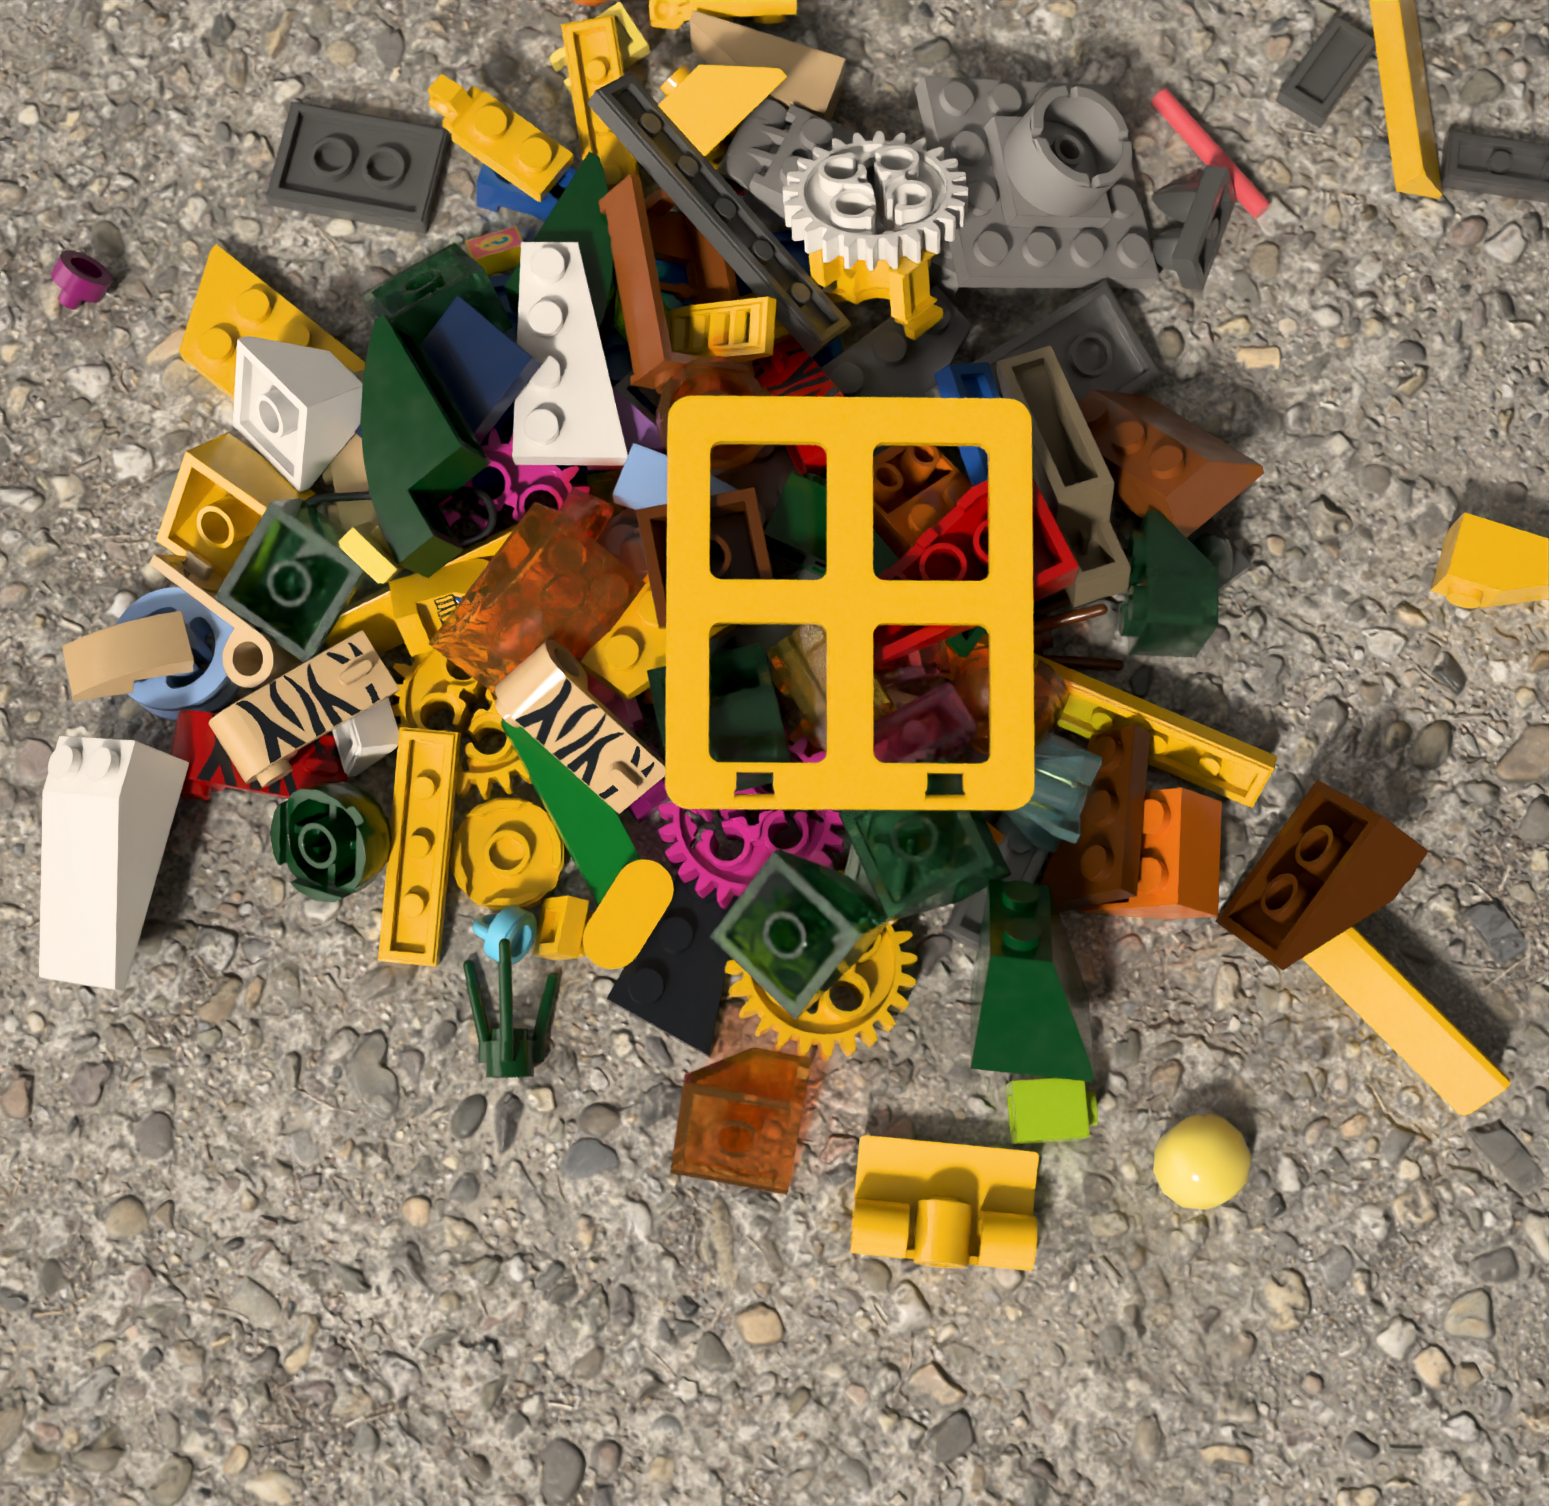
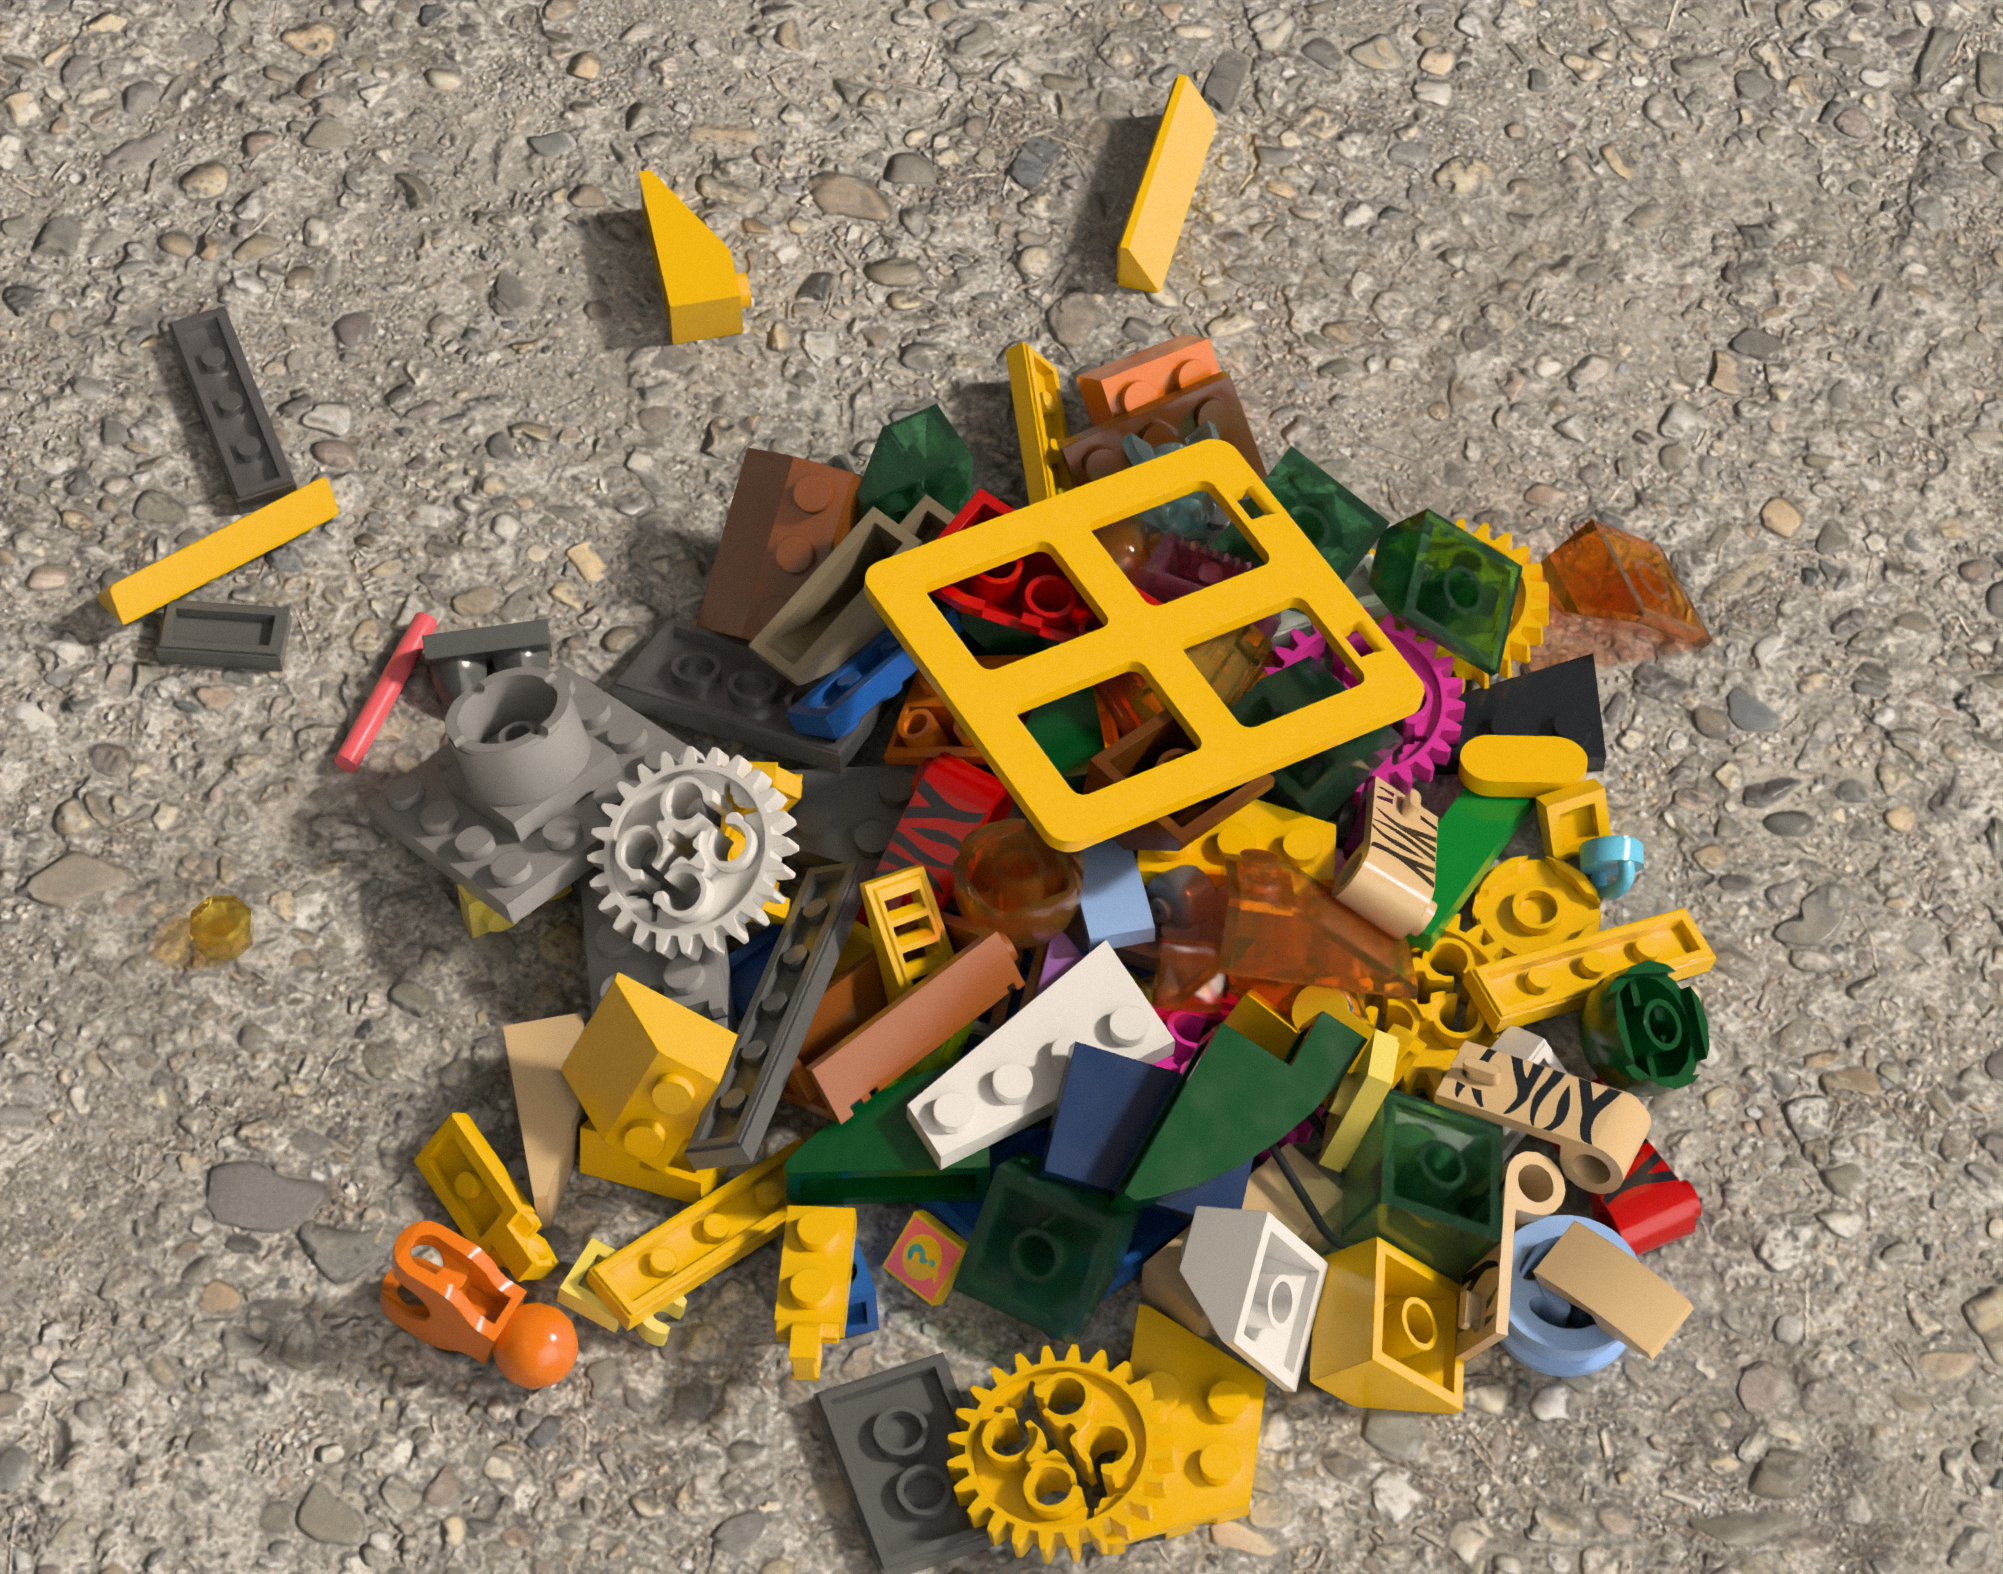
camera: 120 degrees left, 20 degrees down
(101, 853) = (1812, 1220): white slope -> none
(281, 237) = (1111, 1417): none -> yellow gear
(509, 1051) = (1706, 806): dark green plant -> none
(945, 1203) = (1583, 425): yellow panel -> none
(1028, 989) = (1369, 417): dark green slope -> none
(1050, 1110) = (1444, 384): lime brick -> none
(1202, 1161) = (1398, 266): light yellow hair -> none
(1320, 877) = (1103, 267): reddish brown slope -> none

